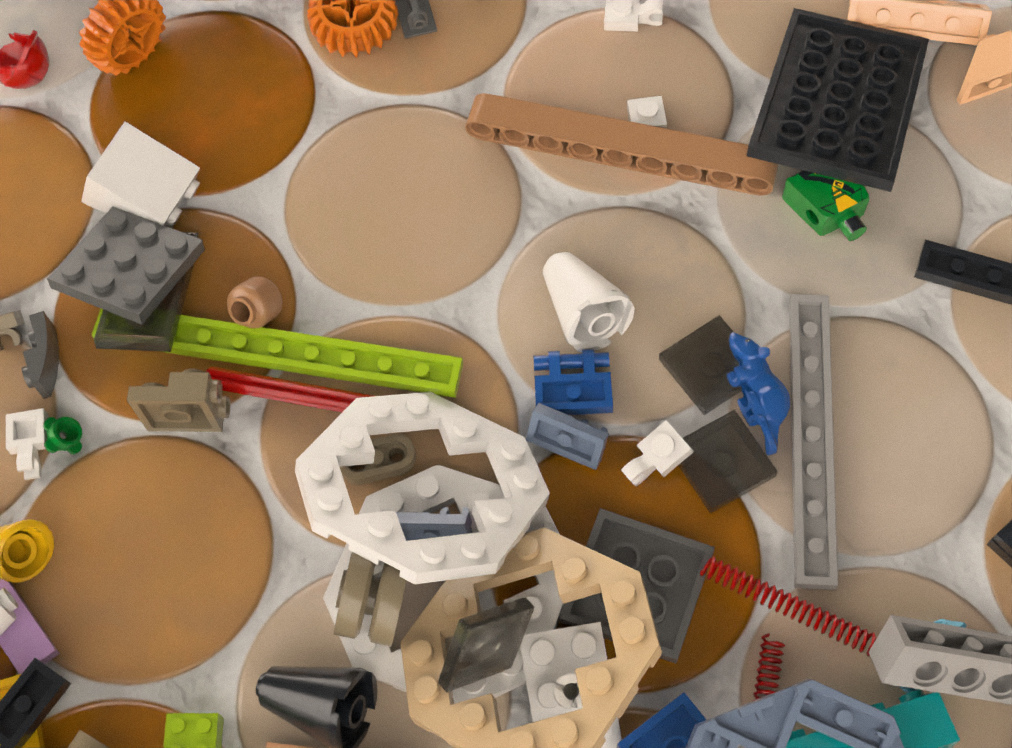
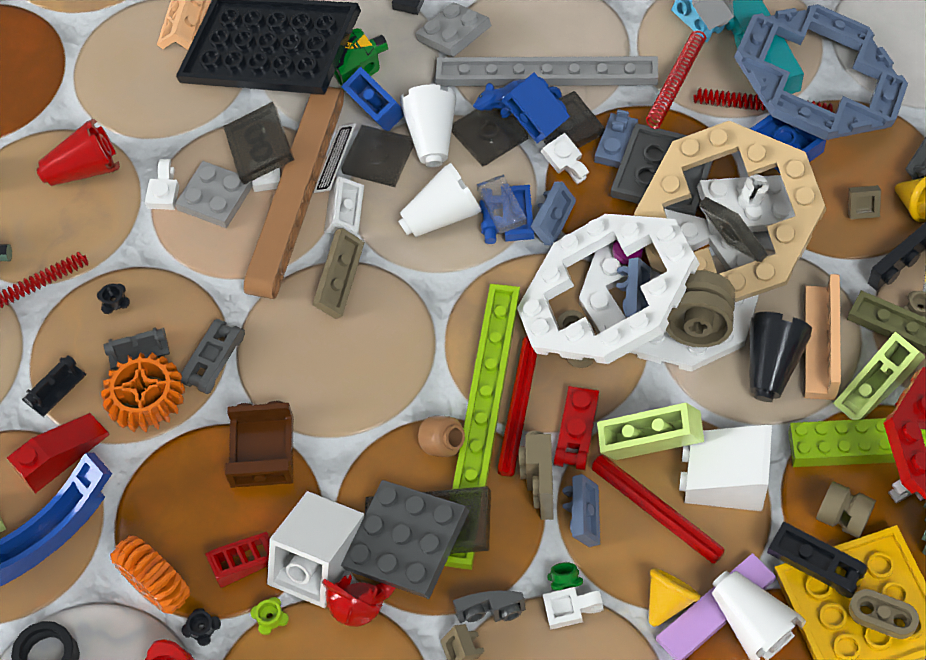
camera: 90 degrees left, 5 degrees down
(66, 213) = (356, 602): none -> red piece
(72, 143) = (267, 607): none -> lime plate
(78, 89) = (198, 618): none -> black plate
(134, 545) = (658, 509): none -> red axle
(138, 458) = (584, 510): none -> sand blue plate
(139, 99) = (227, 552): none -> red slope
(161, 626) = (728, 468): none -> white slope
(210, 528) = (650, 431): none -> yellowish green brick
(251, 457) = (577, 427): none -> red plate
(274, 130) = (260, 444): none -> reddish brown panel
(396, 76) = (211, 355): none -> dark grey plate
(493, 193) = (338, 273): none -> dark tan plate
(578, 369) = (501, 204): none -> clear tile
(596, 201) = (344, 206): none -> white slope
(620, 64) = (213, 194): none -> light grey plate
(671, 186) = (334, 158): none -> sticker
(675, 236) = (378, 155): none -> clear smoke tile
(684, 97) = (258, 143): none -> clear smoke tile
(697, 523) = (615, 139): none -> sand blue plate
(709, 286) = (430, 121): none -> white cone
(723, 407) = (536, 107): none -> blue brick
(750, 219) = (373, 99): none -> blue brick
(882, 317) = (453, 29): none -> light grey plate

